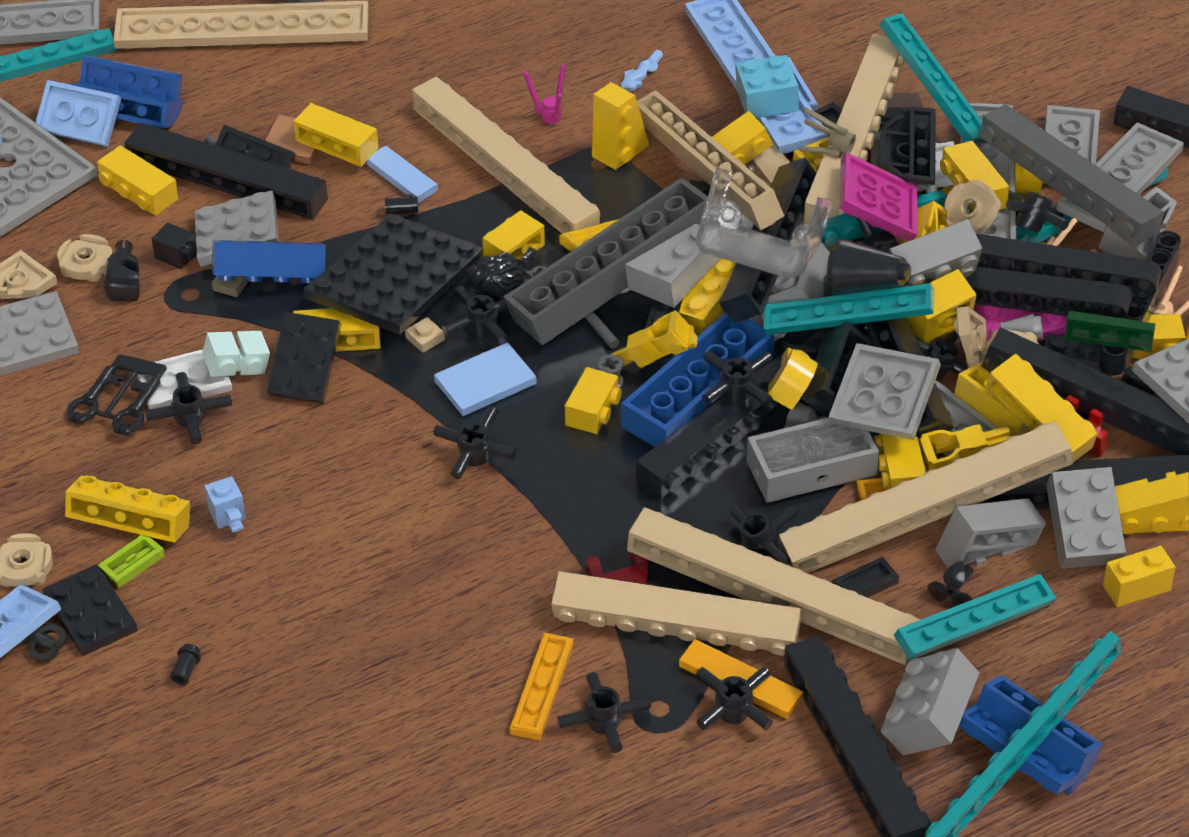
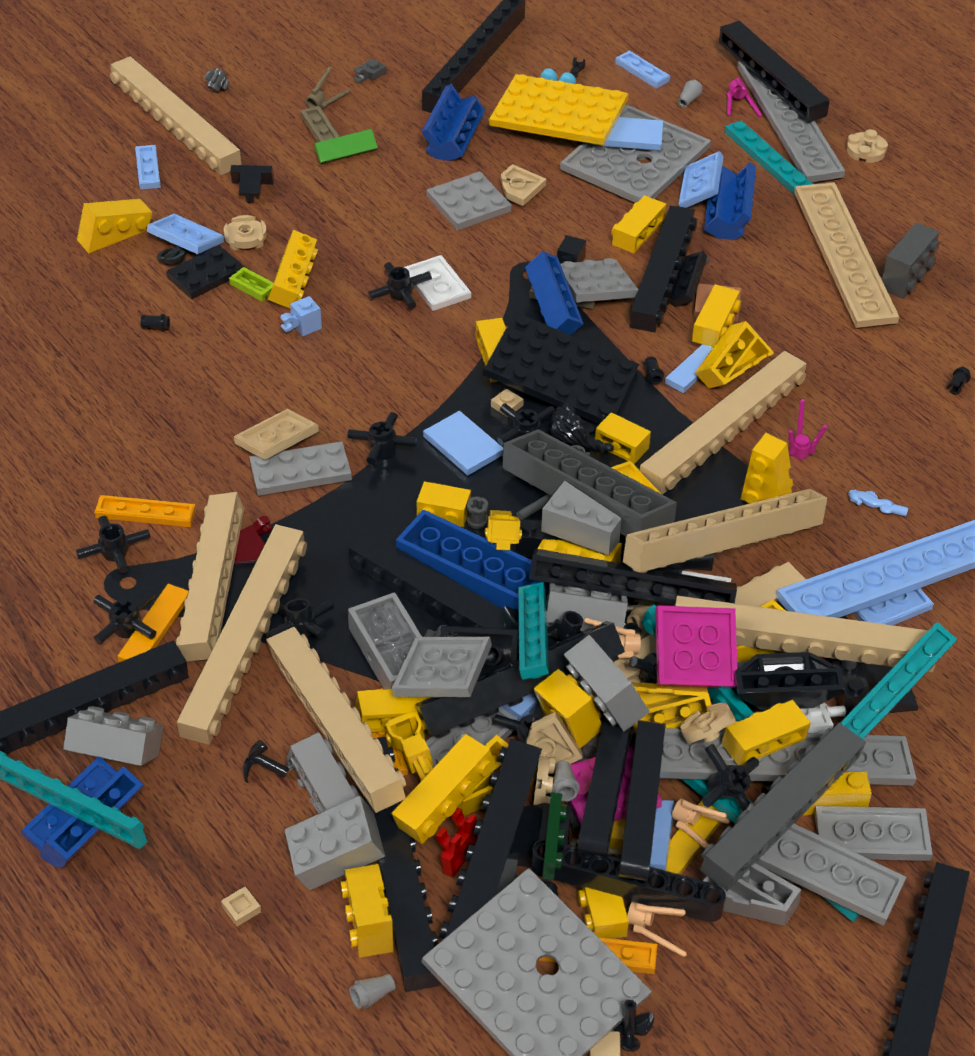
camera: 80 degrees right, 0 degrees up
(89, 269) = (543, 219): tan plate -> none
(107, 377) = (435, 256): black piece -> none
(122, 274) = (533, 224): black piece -> none
(225, 358) = (456, 304): light aqua piece -> none
(304, 357) = (456, 332): black plate -> none
(409, 132) = (732, 355): none -> yellow wedge
(440, 545) = (276, 434): none -> tan tile
(497, 531) = (300, 468): none -> light grey plate
(724, 238) = (593, 540): clear windscreen -> none
(737, 379) = (457, 576): black bar -> none
(744, 138) = (764, 556): yellow brick -> none
(767, 86) = (848, 569): medium azure brick -> none
(792, 377) = (468, 611): yellow brick -> none
(839, 139) = (760, 610): dark tan plant -> none
(864, 269) = (565, 618): black cone -> none
(869, 578) = (267, 702): black tile -> none
(974, 616) = (215, 769): teal plate -> none
(1139, 576) = (279, 895): yellow brick -> none
(1147, 612) = (241, 906): none -> tan plate

